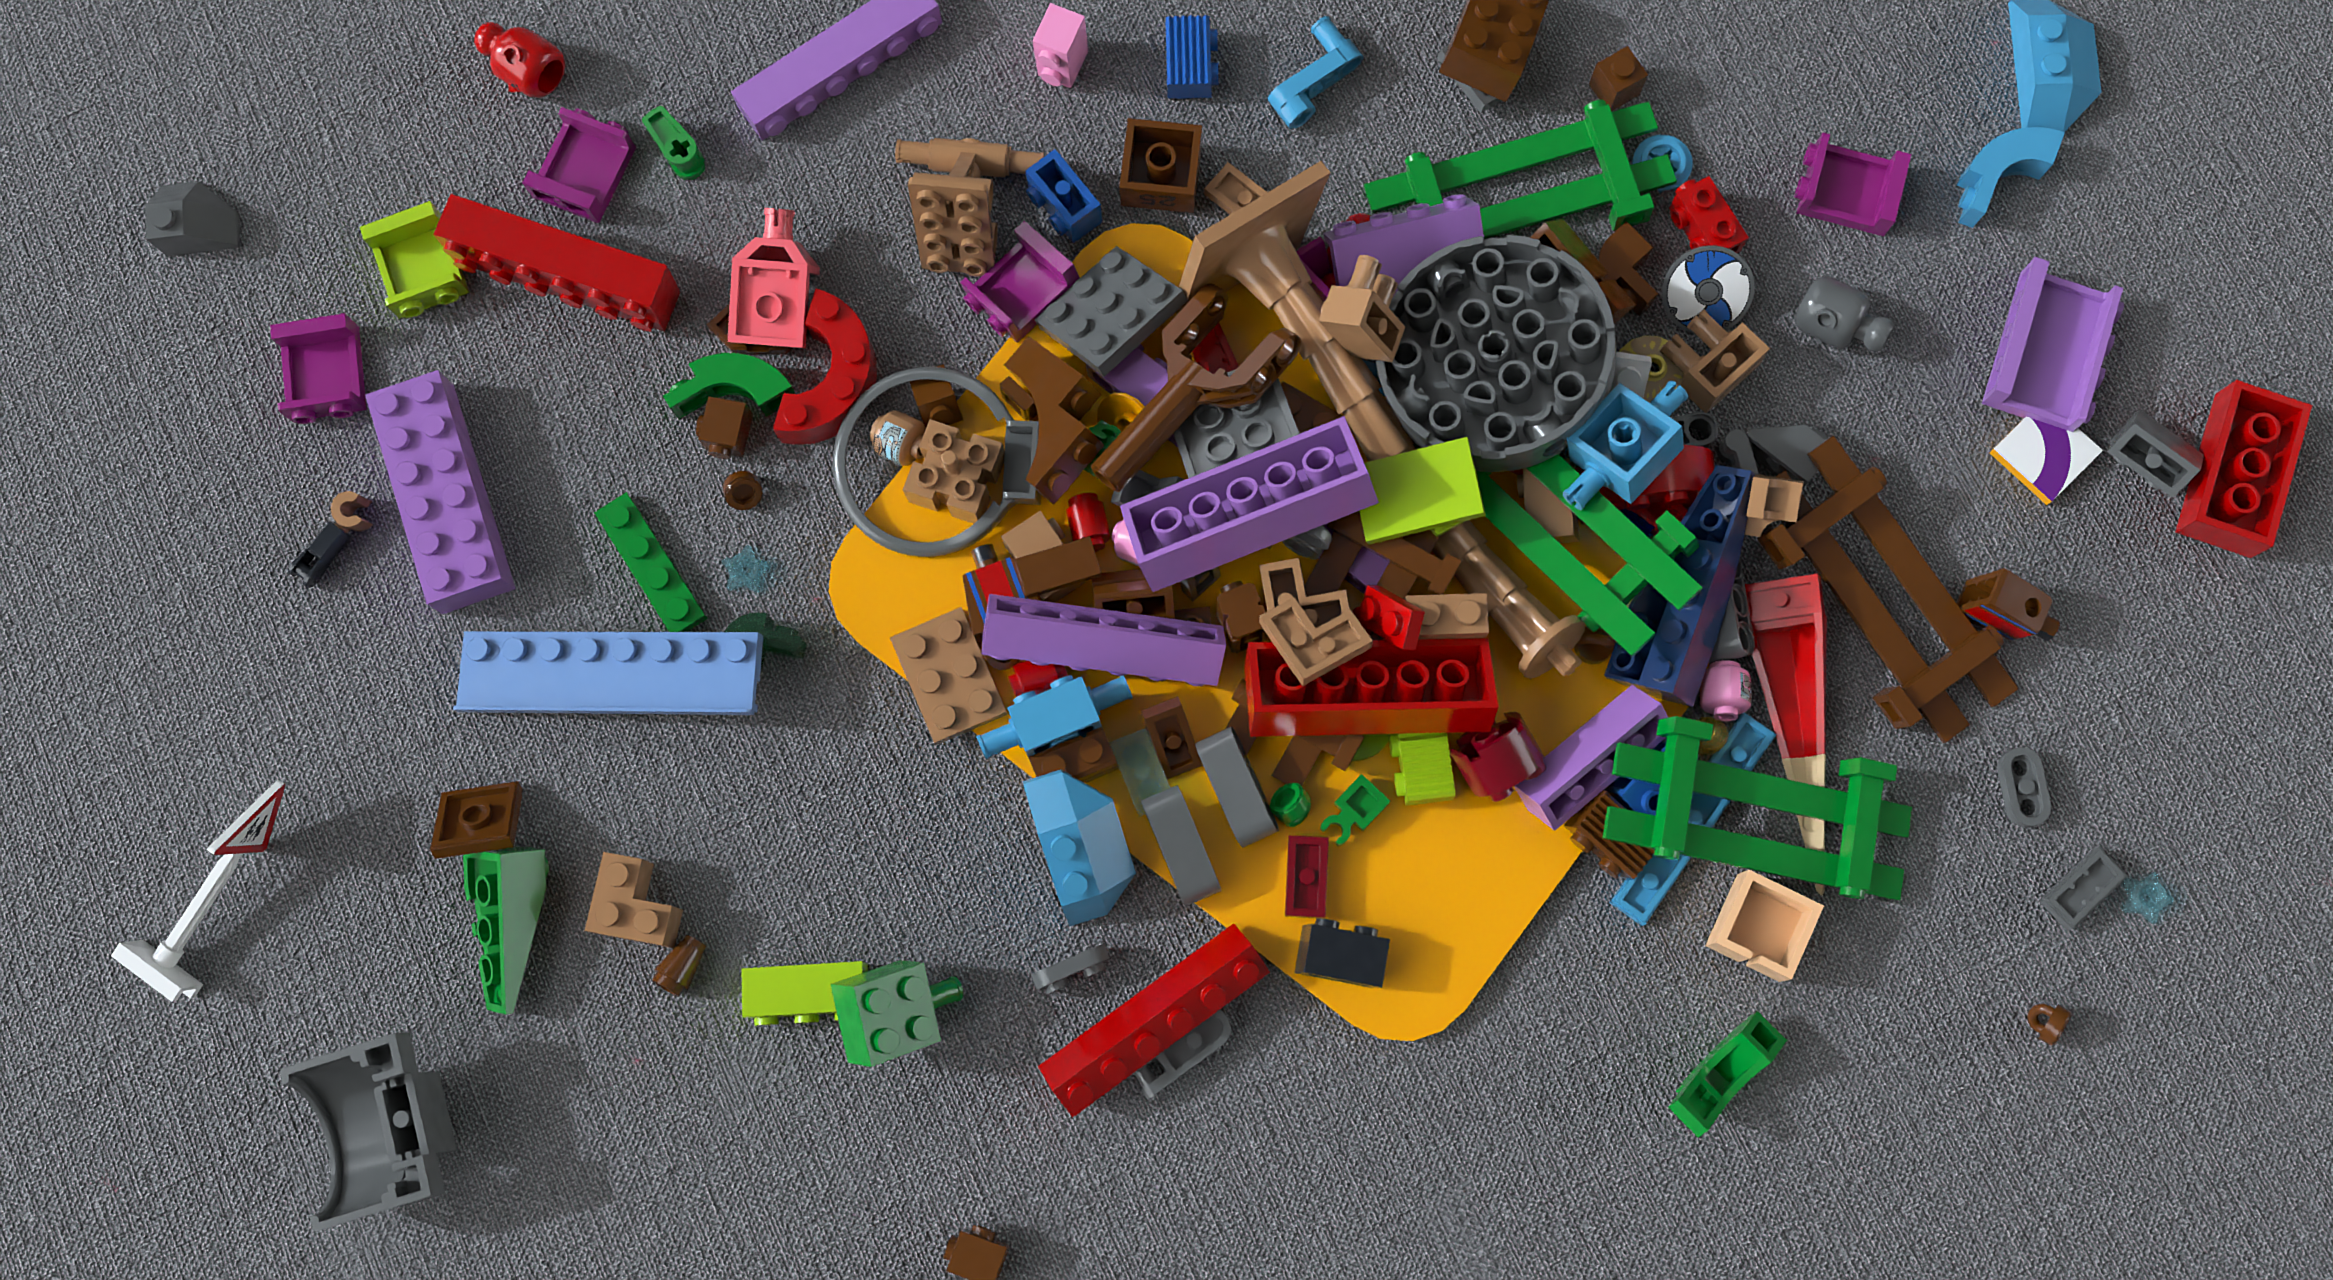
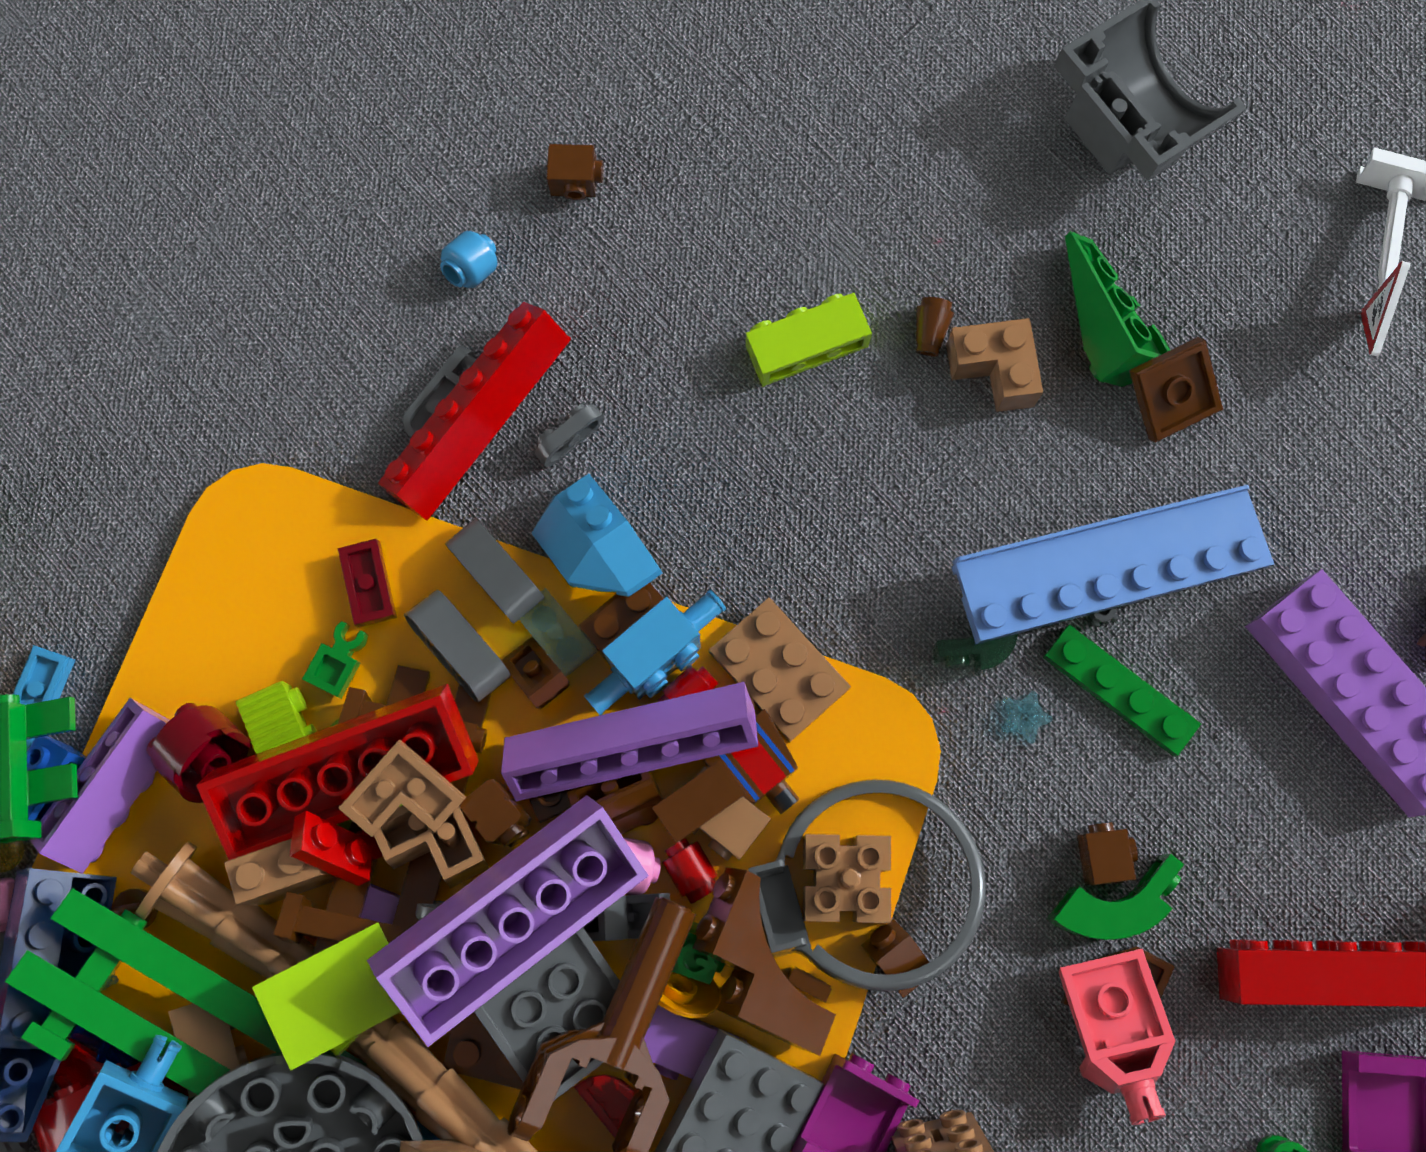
camera: 160 degrees right, 0 degrees up
(742, 490) = (1060, 795): reddish brown tile -> none
(853, 370) = (998, 959): red brick -> none
(890, 1011) = (718, 336): green brick -> none
(897, 437) = (920, 901): medium nougat head -> none
(1114, 1190) = (468, 259): none -> dark azure head
(1291, 804) = (401, 647): green tile -> none
(1342, 954) = (311, 517): black brick -> none
(1587, 831) = (92, 713): reddish brown brick -> none

